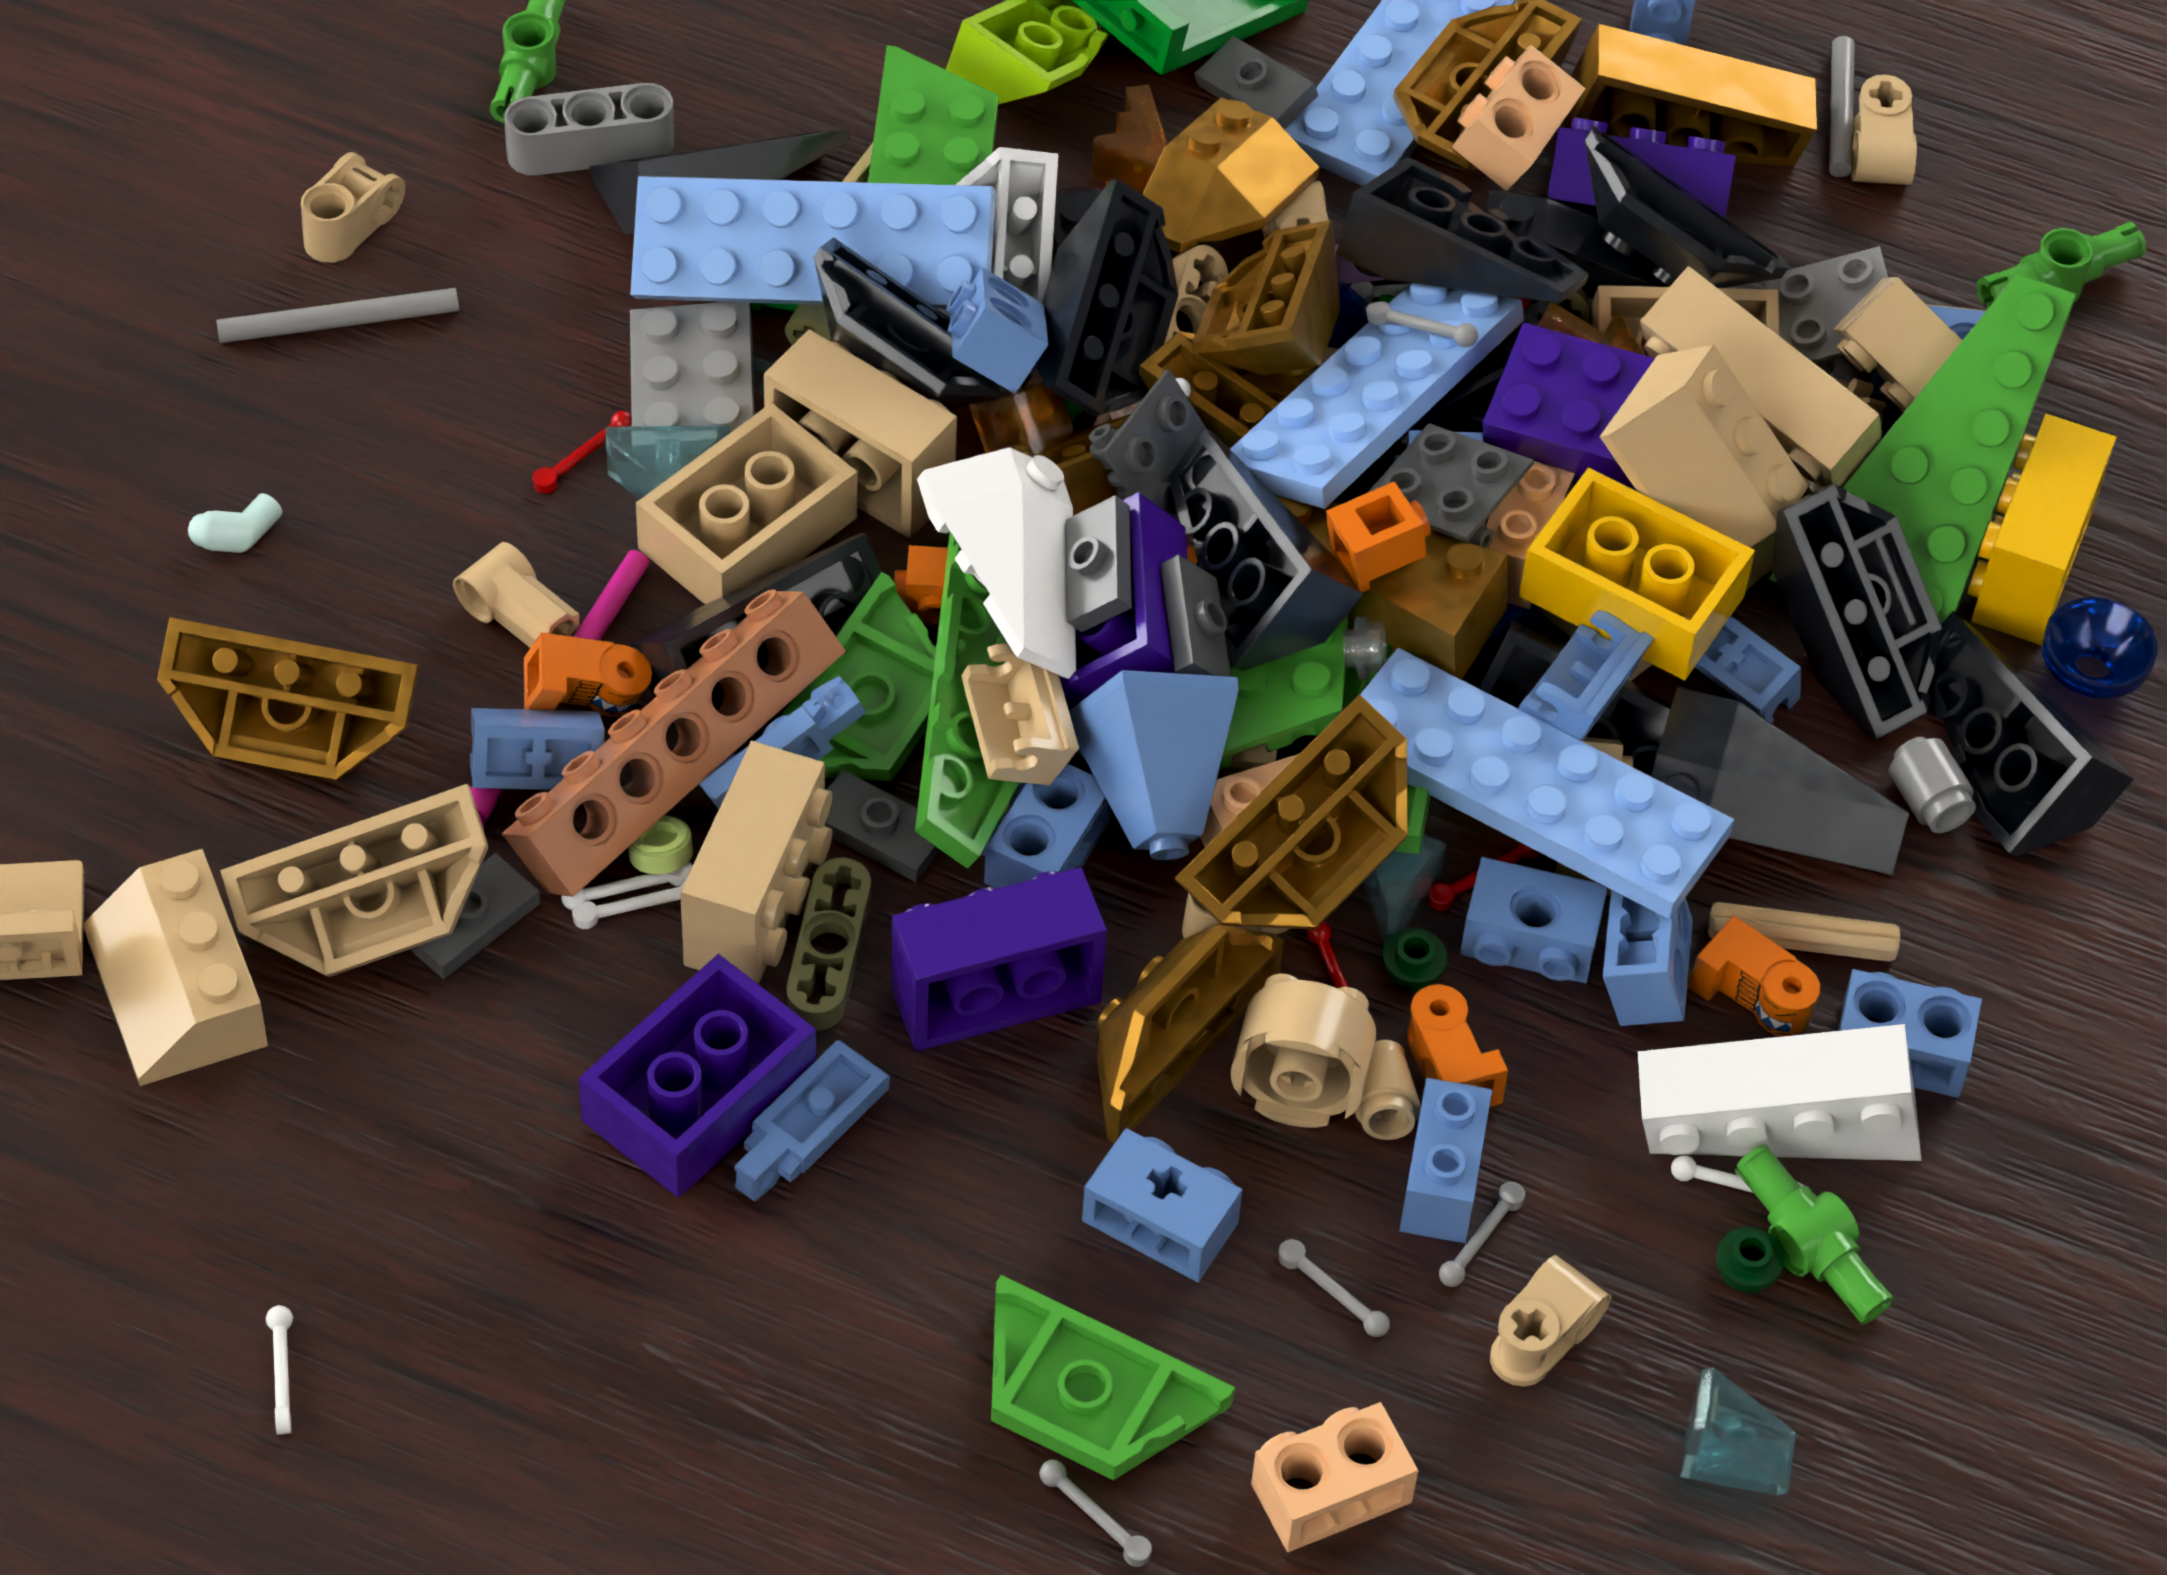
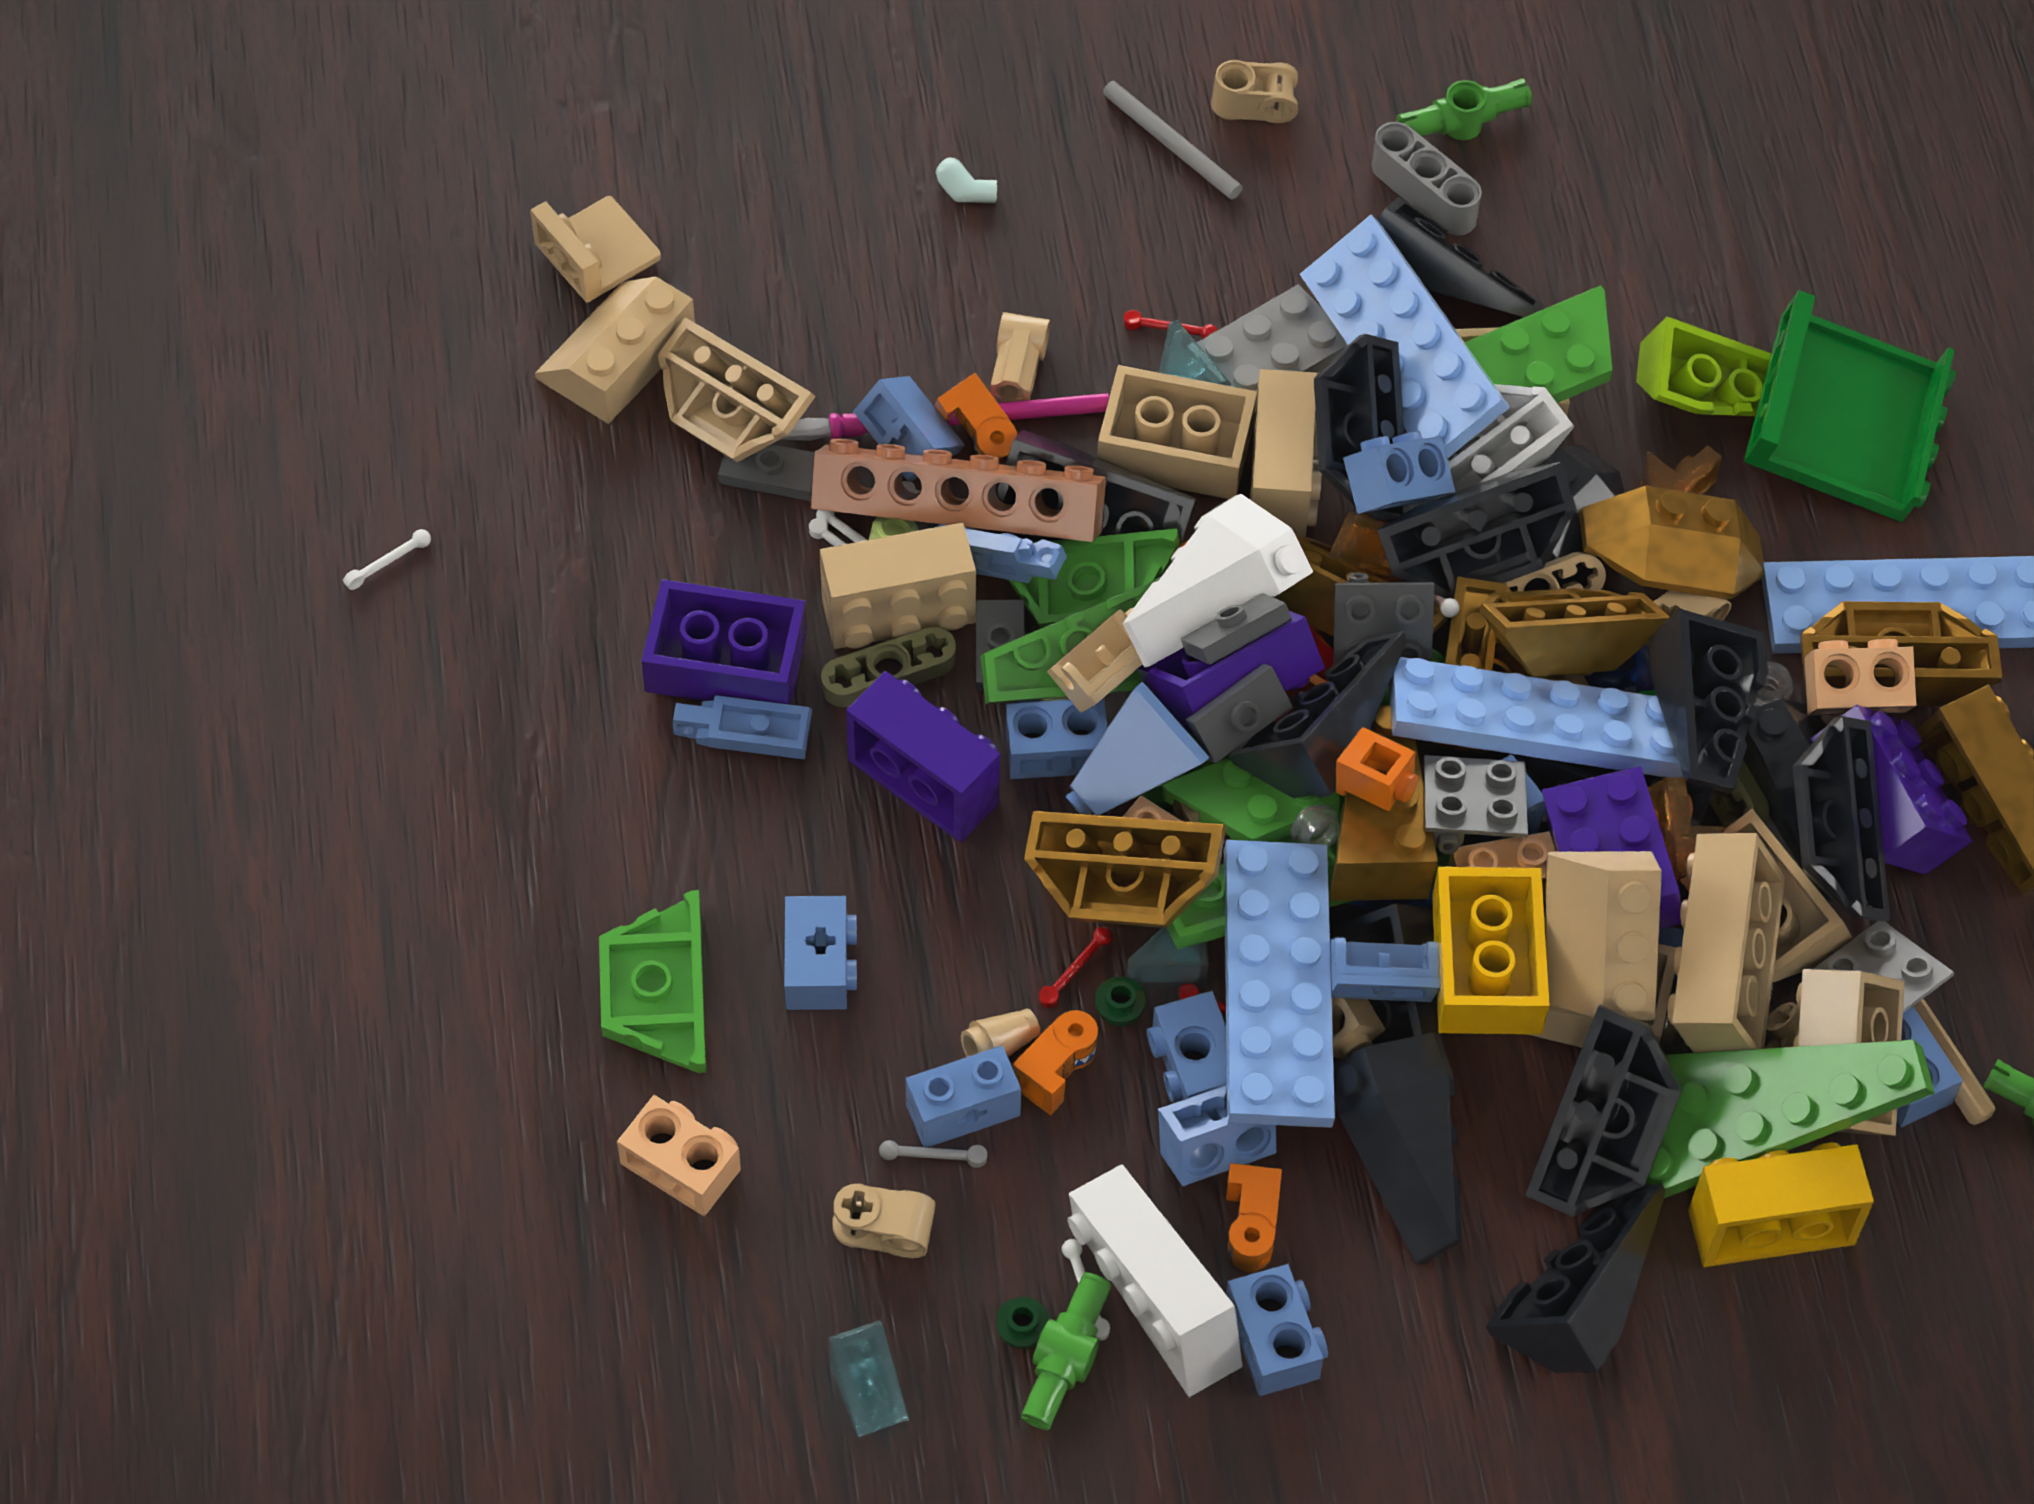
camera: 60 degrees right, 5 degrees up
(284, 698) = (846, 274): pearl gold wedge -> none
(1136, 1548) = (563, 1075): light grey hinge -> none
(1177, 1017) = (960, 886): pearl gold wedge -> none
(1257, 80) = (1792, 523): dark grey plate -> none
(1292, 1256) = (841, 1052): light grey hinge -> none
(1304, 1051) = (981, 966): tan brick -> none
(1380, 313) = (1606, 687): light grey hinge -> none
(1751, 670) = (1508, 1078): medium blue hinge -> none
(1813, 931) = (1321, 1229): tan axle -> none
(1932, 784) = (1504, 1247): light grey brick -> none
(2103, 631) = (1712, 1276): clear blue piece -> none

